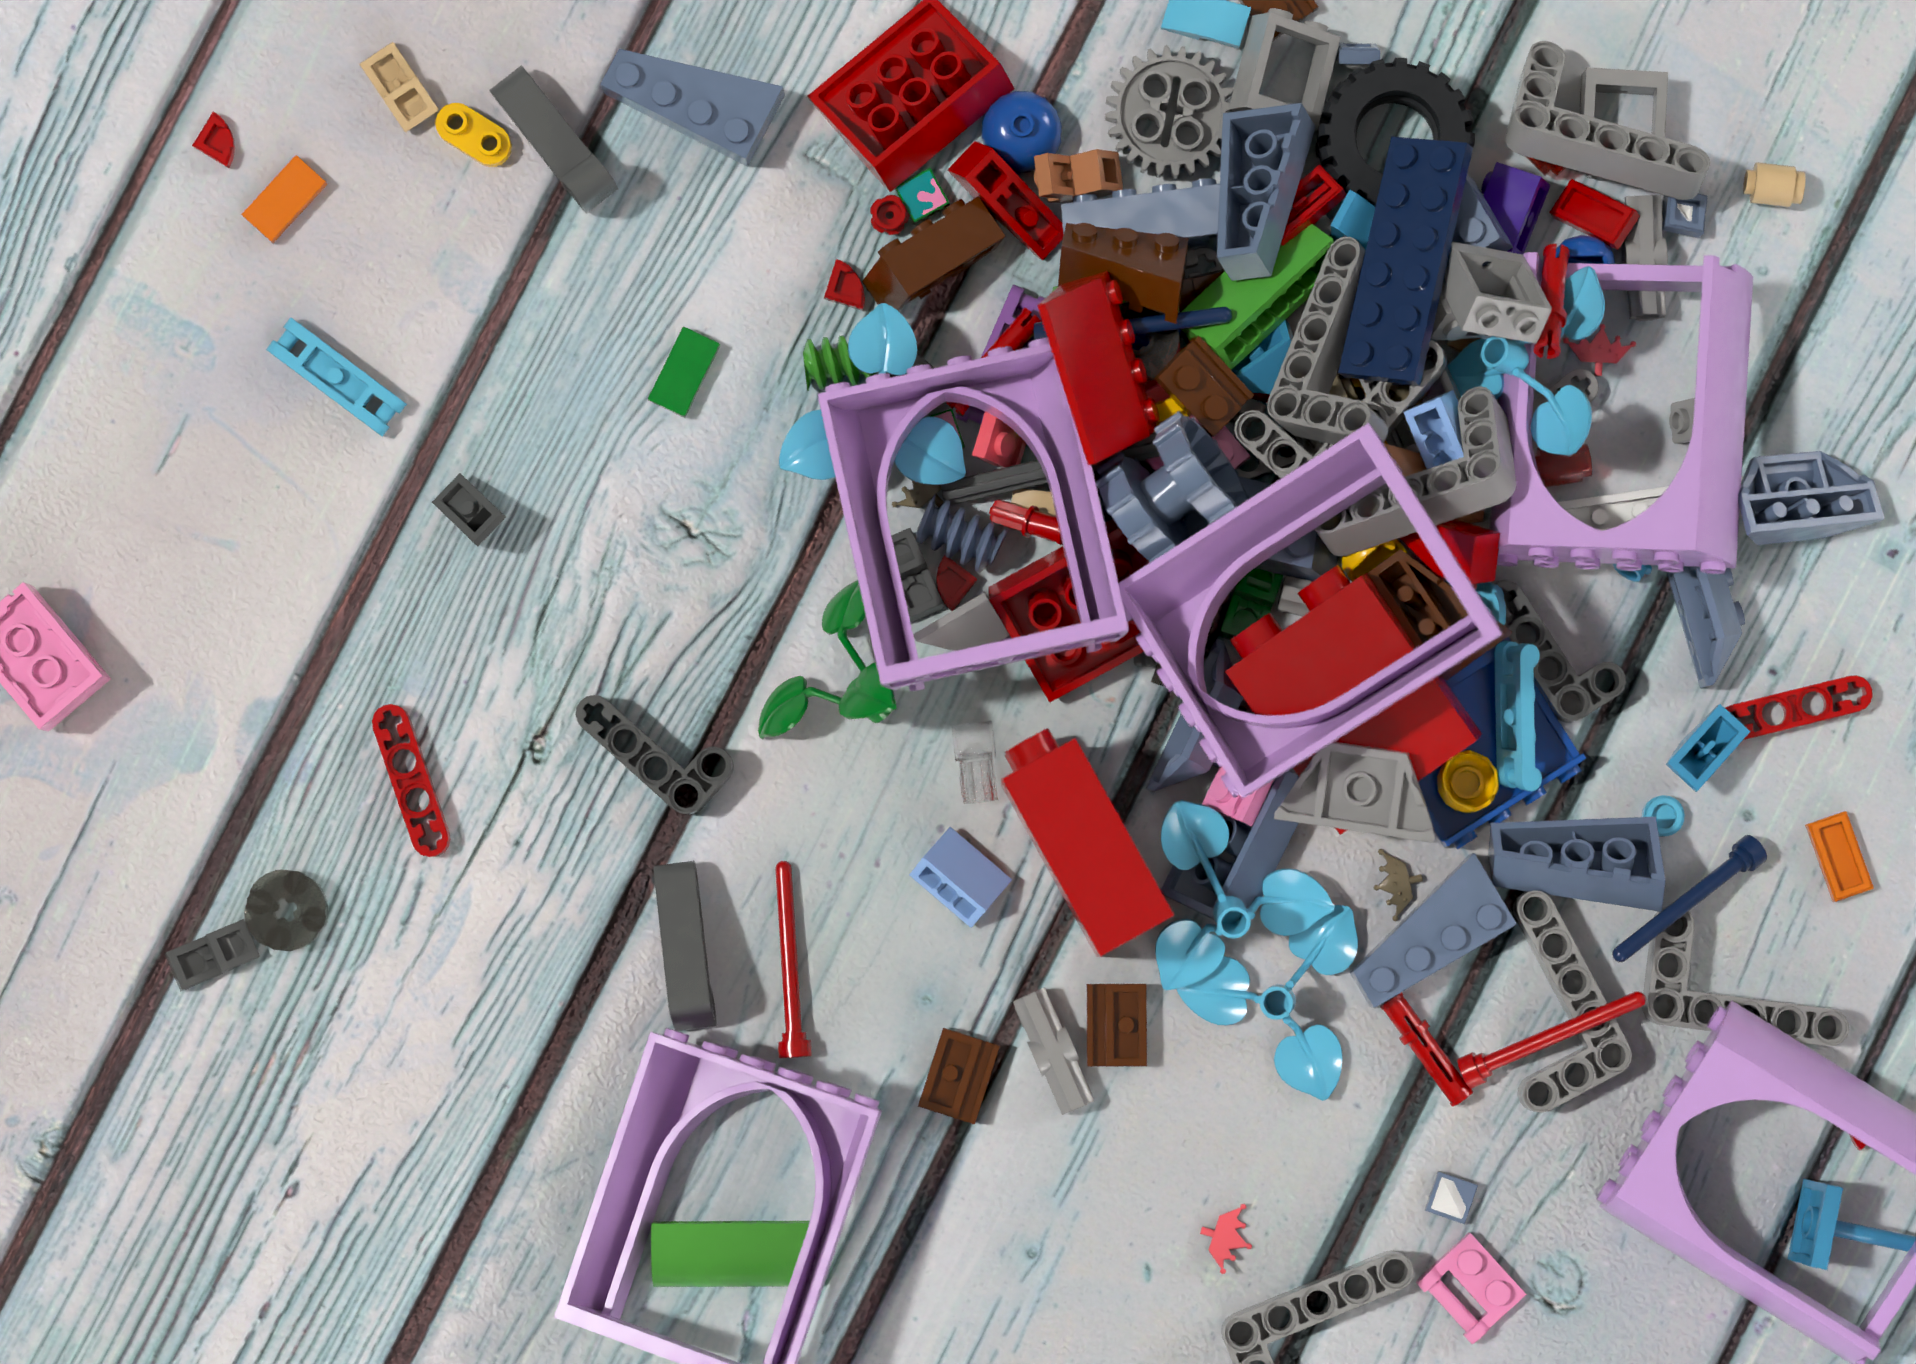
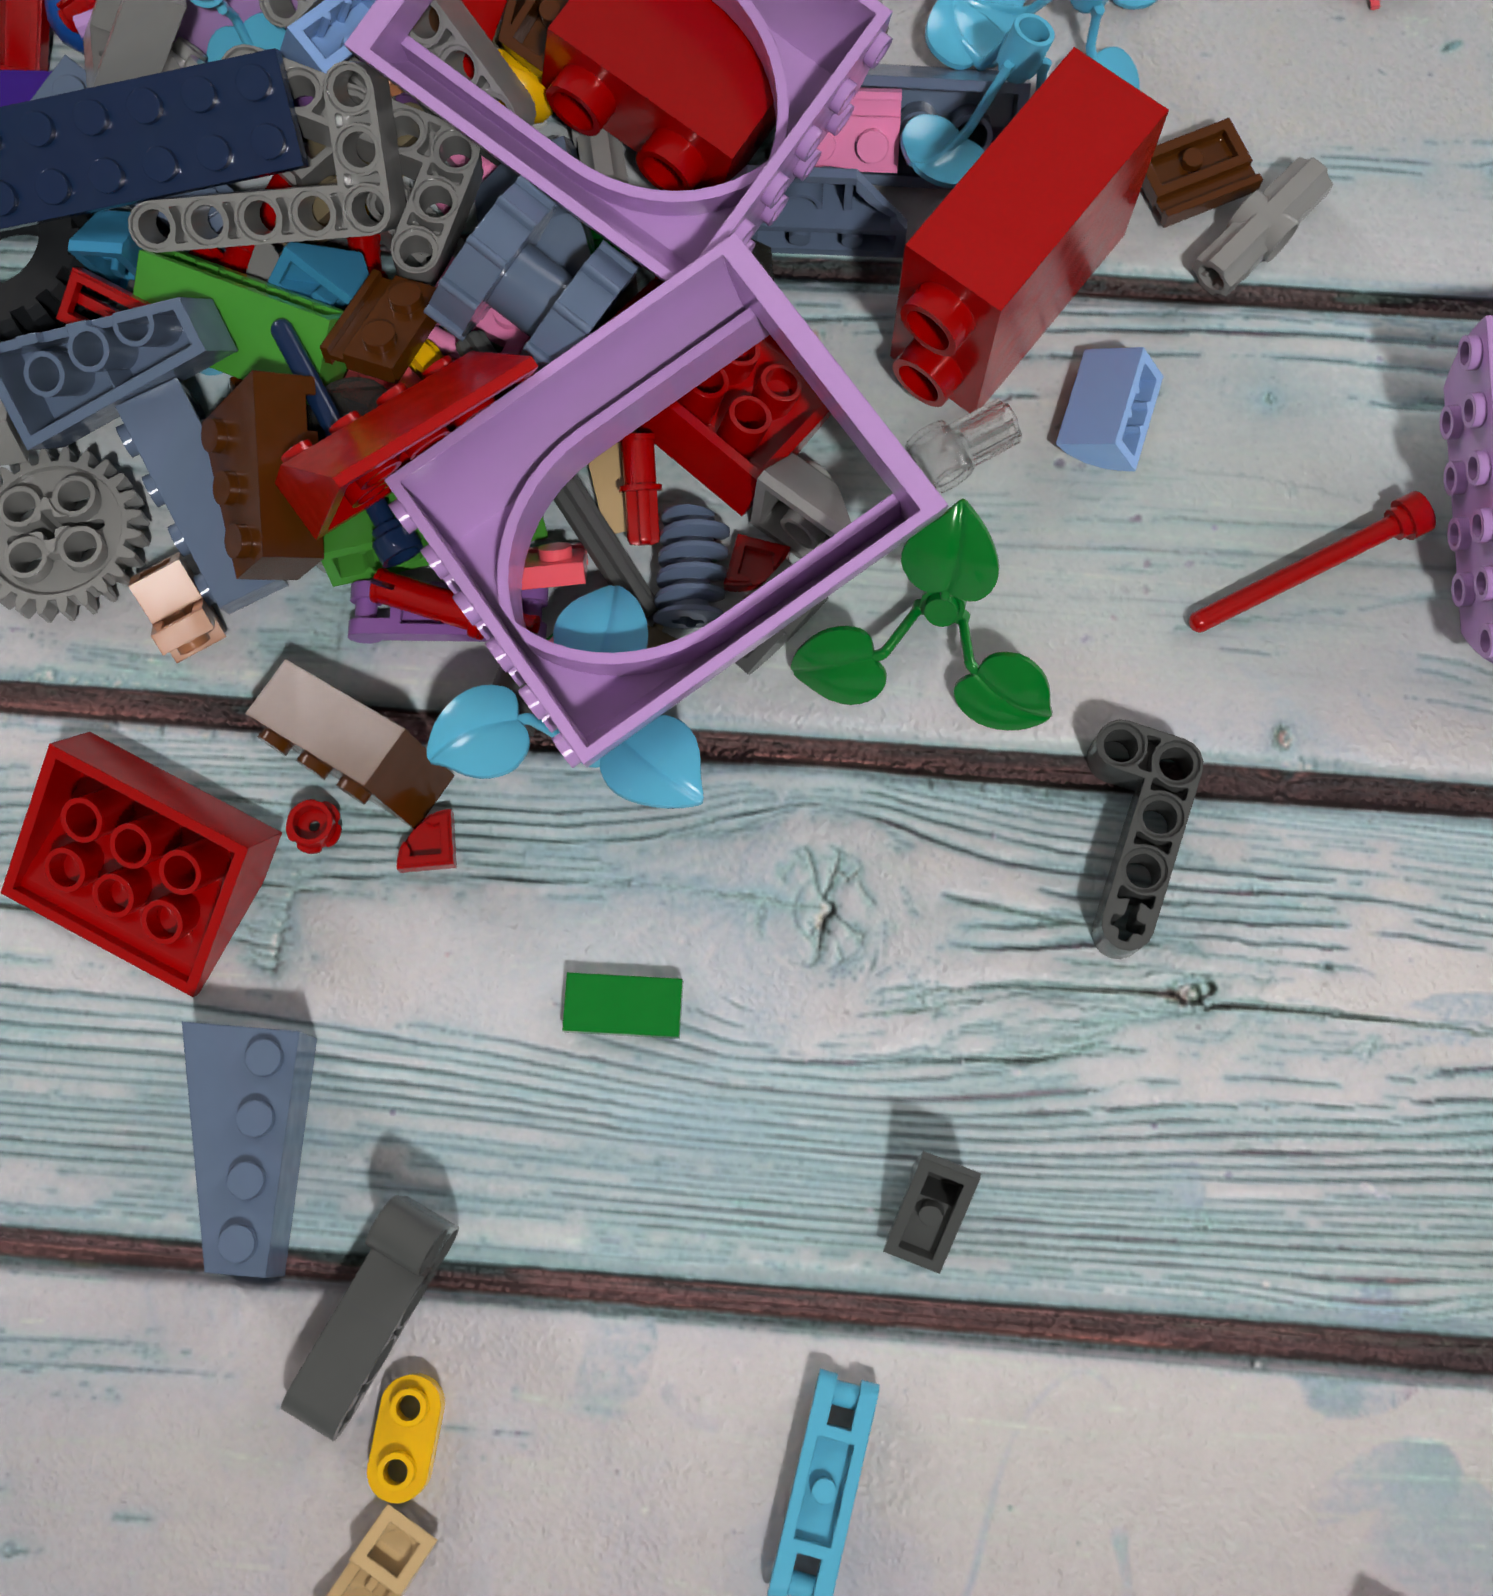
camera: 115 degrees left, 10 degrees down
(406, 782) = (1326, 1146): red beam -> none
(684, 946) = (1361, 690): dark grey beam -> none
(830, 363) = (531, 810): bright green piece -> none
(922, 196) = (273, 794): tile -> none
(958, 1076) = (1346, 318): reddish brown plate -> none
(1008, 198) = (211, 710): red slope -> none
(1021, 128) = (146, 704): blue cylinder -> none

